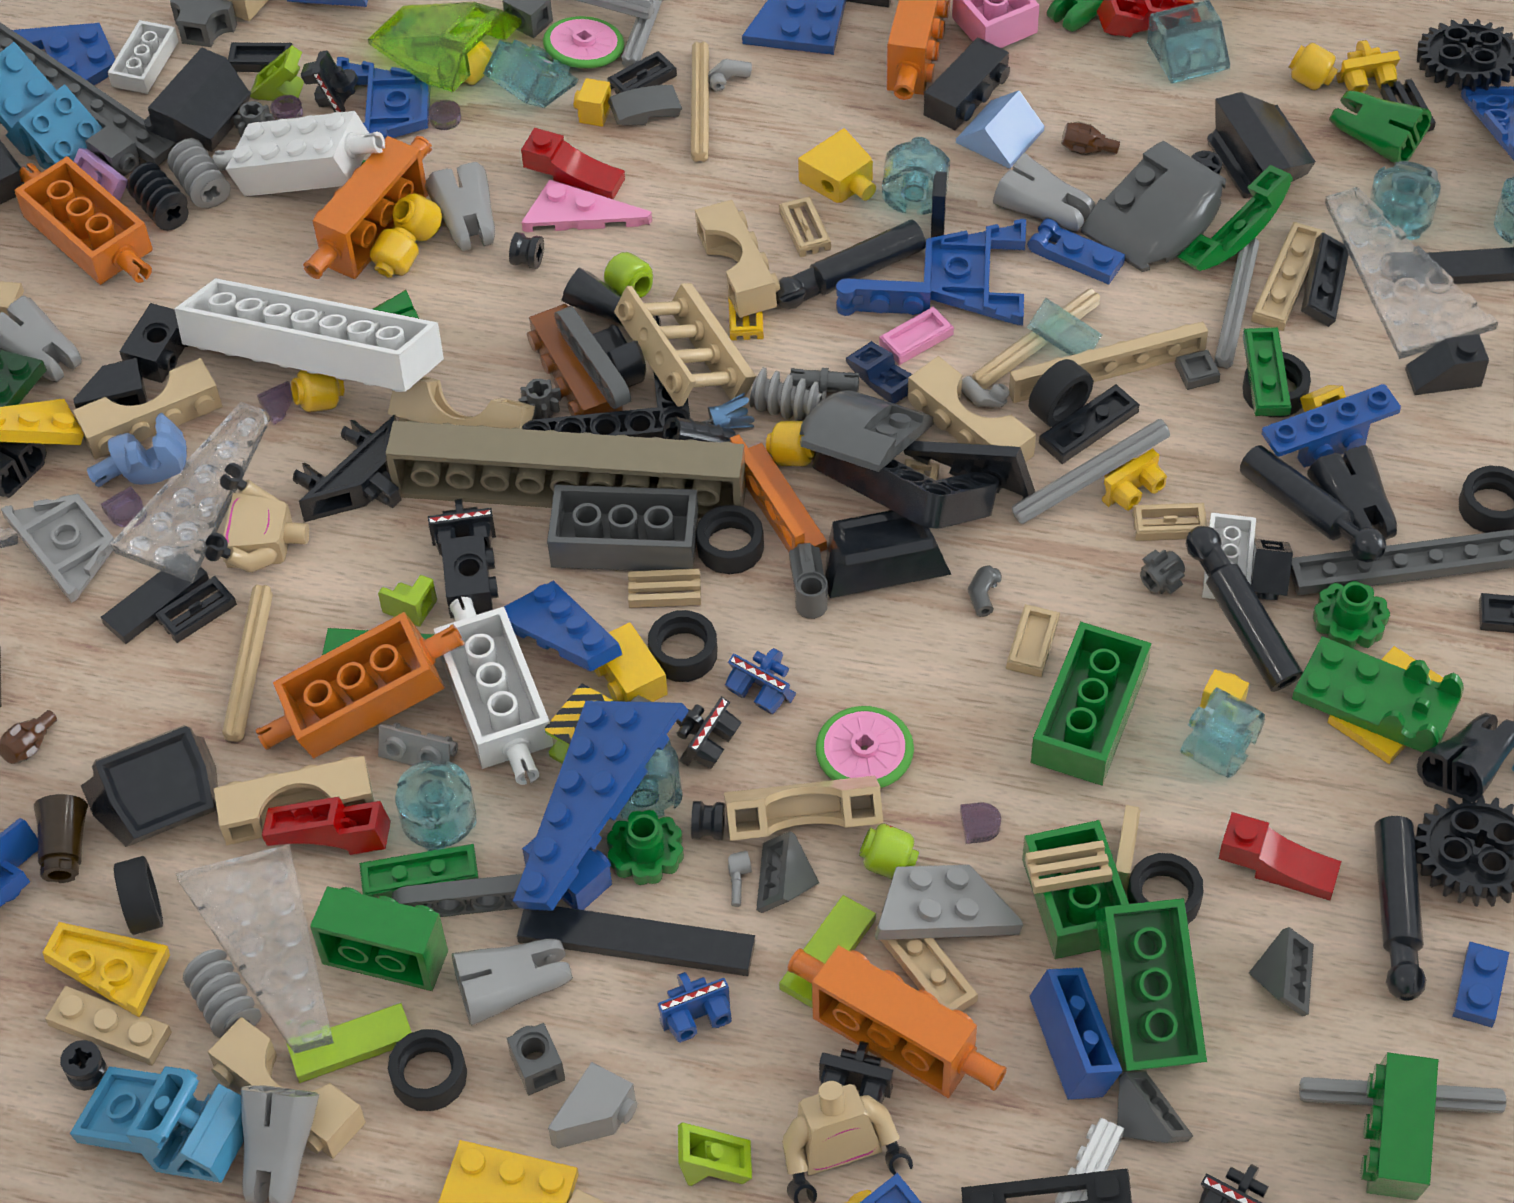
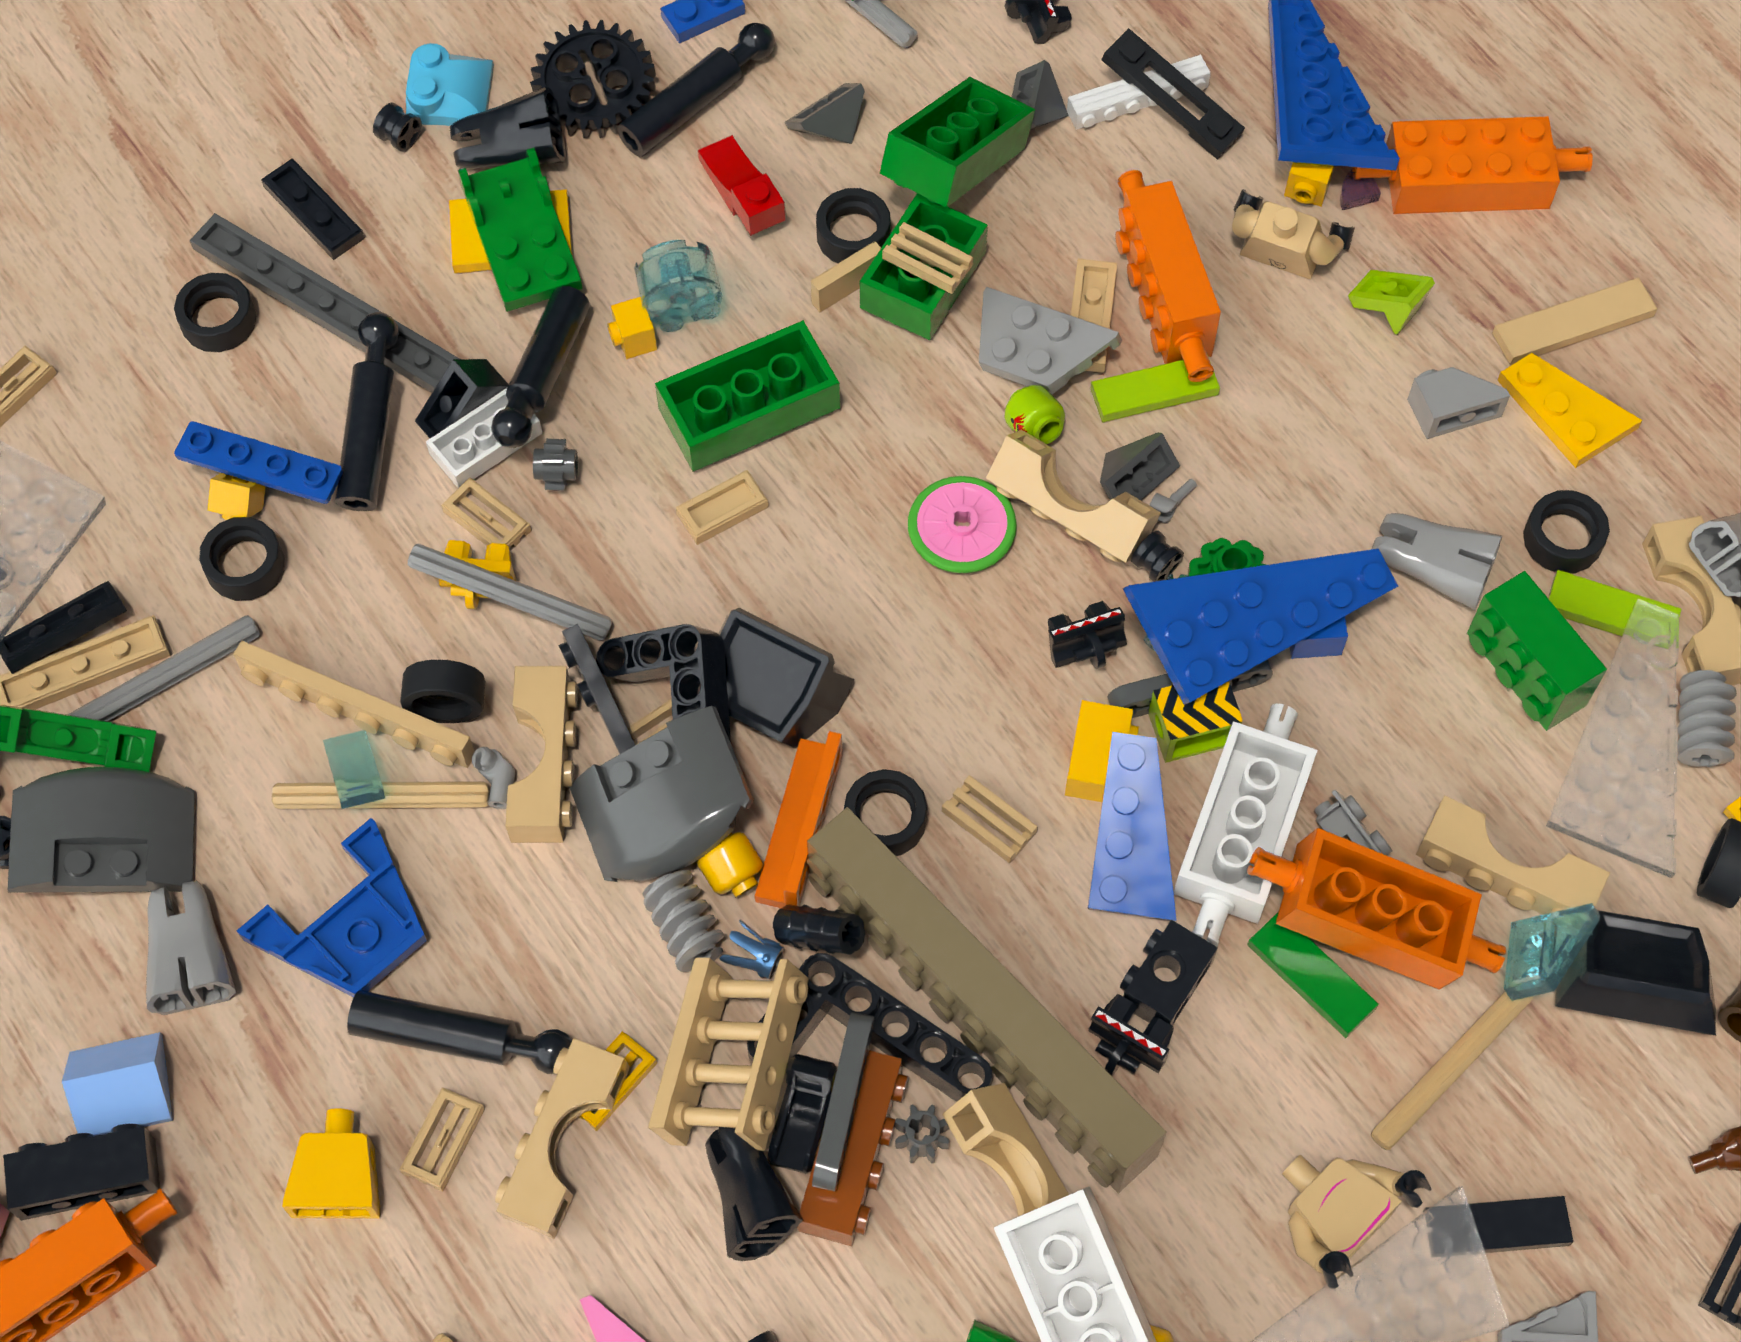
camera: 140 degrees left, 10 degrees up
(199, 612) = (1423, 1159): black tile -> none
(231, 748) = (1545, 949): none -> clear light blue wing
(329, 823) = (1505, 805): red slope -> none
(355, 480) = (1184, 1190): black connector -> none
(413, 600) = (1244, 1002): lime panel -> none
(435, 804) = (1395, 767): clear light blue brick -> none
(436, 866) = (1442, 716): green tile -> none
(463, 895) = (1423, 653): dark grey beam -> none
(540, 1072) = (1472, 458): dark grey brick -> none
(623, 528) = (987, 888): dark grey brick -> none
(628, 270) = (691, 1218): lime head -> none
(640, 939) = (1285, 497): black tile -> none
(684, 623) = (1030, 707): black tyre -> none
(693, 1001) = (1305, 420): blue hips -> none
(773, 689) = (988, 646): blue hips -> none
(809, 581) = (857, 711): dark grey piece -> none
(828, 380) = (624, 918): dark grey pin -> none
(859, 1070) = (1225, 276): black hips -> none
(880, 372) = (559, 883): dark blue slope -> none
(882, 296) = (472, 962): blue plate -> none
(910, 175) = (286, 1067): clear light blue brick -> none
(916, 335) = (481, 901): bright pink tile -> none
(938, 204) = (307, 1006): black tile -> none
(979, 587) = (715, 585): dark grey arm -> none
(980, 822) = (931, 394): clear purple tile -> none
(1075, 1033) = (1037, 173): blue brick -> none
(1076, 252) = (228, 861): blue plate -> none
(1086, 139) = (58, 986): reddish brown piece -> none
(1089, 424) = (393, 660): black tile -> none
(1197, 369) = (283, 637): dark grey tile -> none
(1266, 372) = (246, 556): green tile -> none
(1351, 614) = (452, 313): green plant -> none
(1358, 486) = (313, 406): black piece -> none
(1449, 366) = (85, 449): black slope -> none

